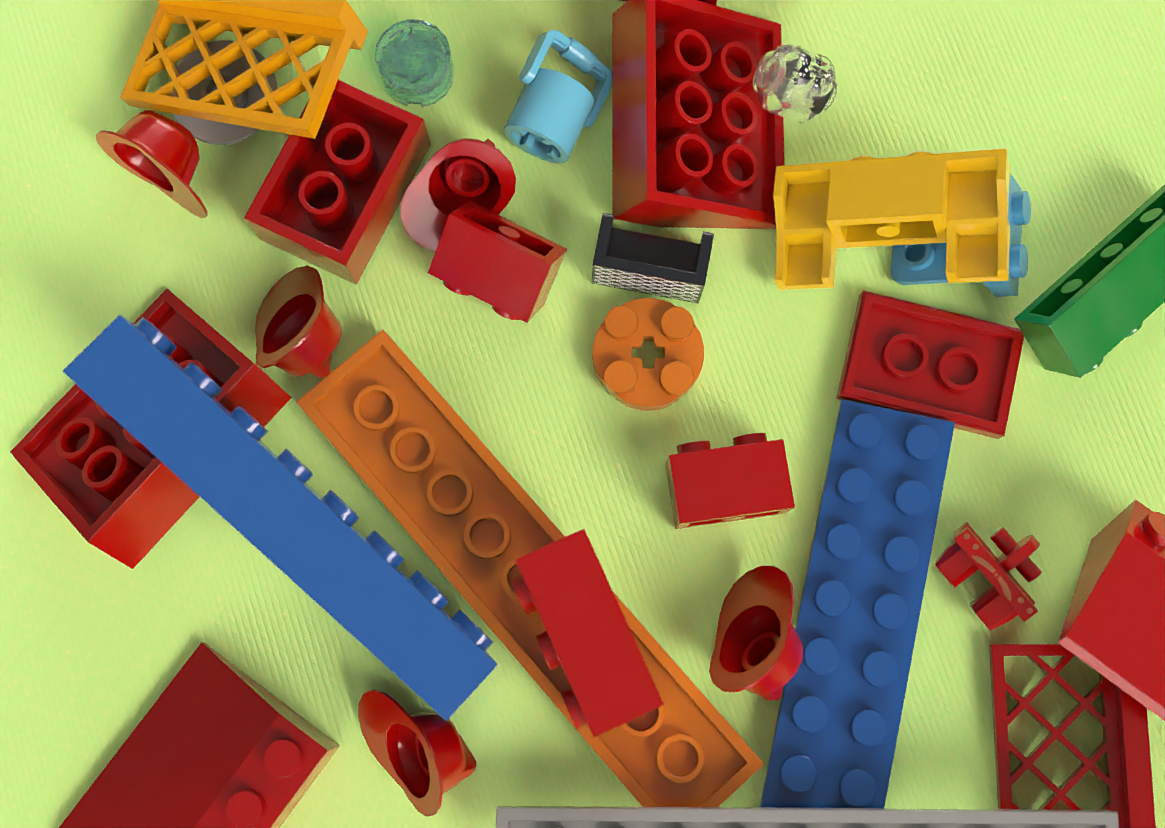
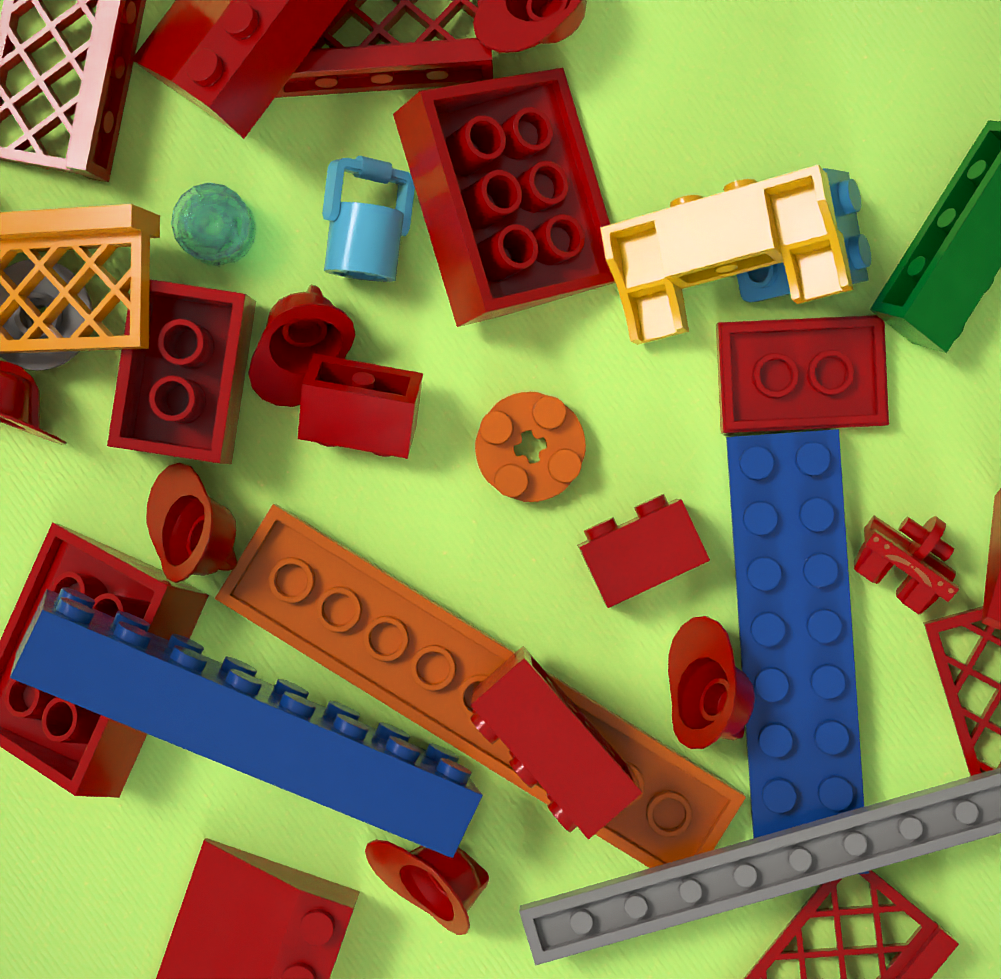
camera: 15 degrees left, 10 degrees up
(650, 262) = (506, 357): black panel -> none
(795, 83) = (595, 132): clear head -> none

